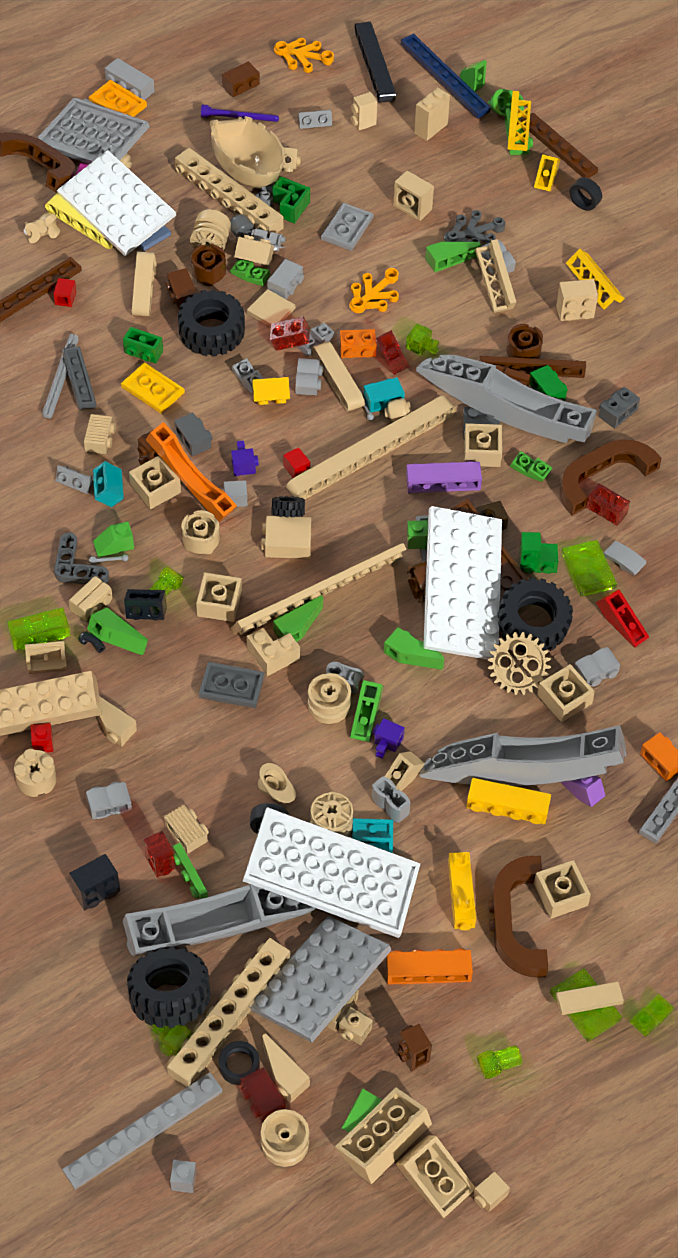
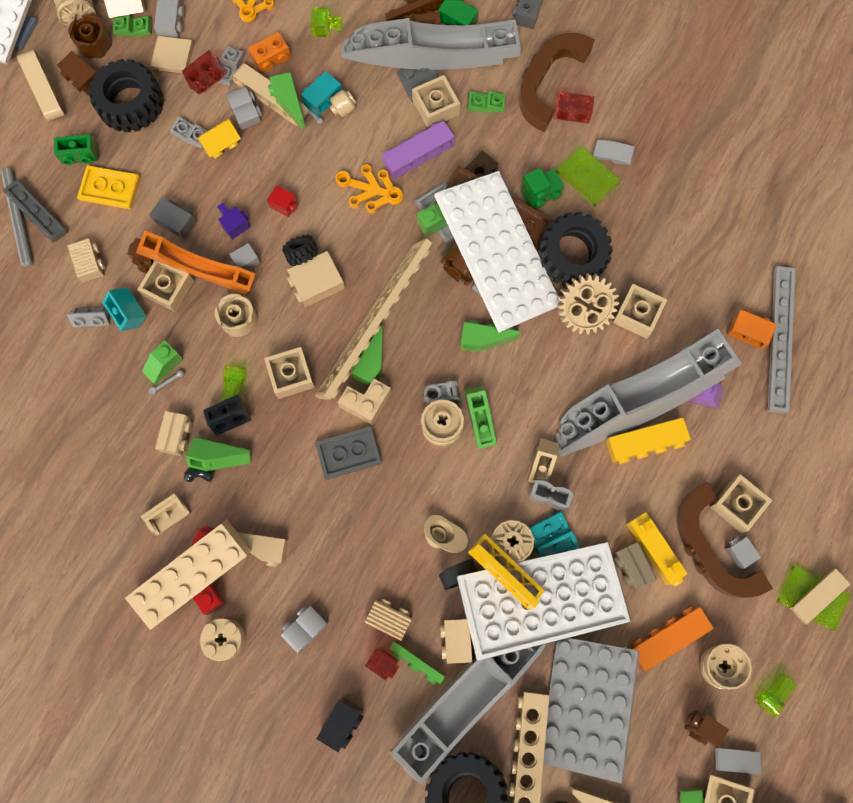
camera: 25 degrees left, 20 degrees up
(39, 628) = (143, 489): clear neon green brick -> none
(69, 566) = (134, 408): dark grey beam -> none
(232, 868) = (457, 641): none -> tan brick
(307, 829) = (503, 575): none -> yellow fence
(350, 379) = (285, 96): none -> bright green slope
(354, 1025) = (648, 737): tan brick -> none
(371, 448) = (338, 153): tan beam -> none
(387, 736) = (513, 432): dark purple brick -> none
(392, 352) = (306, 47): clear red brick -> none
(398, 503) = (372, 189): none -> light orange plant
(431, 1094) = (738, 761): none -> light grey slope
(433, 894) = (635, 566): none -> dark tan brick
(463, 1008) = (737, 664): none -> tan wheel
(540, 932) = (742, 552): none -> light grey brick
(598, 666) = (649, 270): light grey brick -> none
(622, 618) = (643, 211): red slope -> none

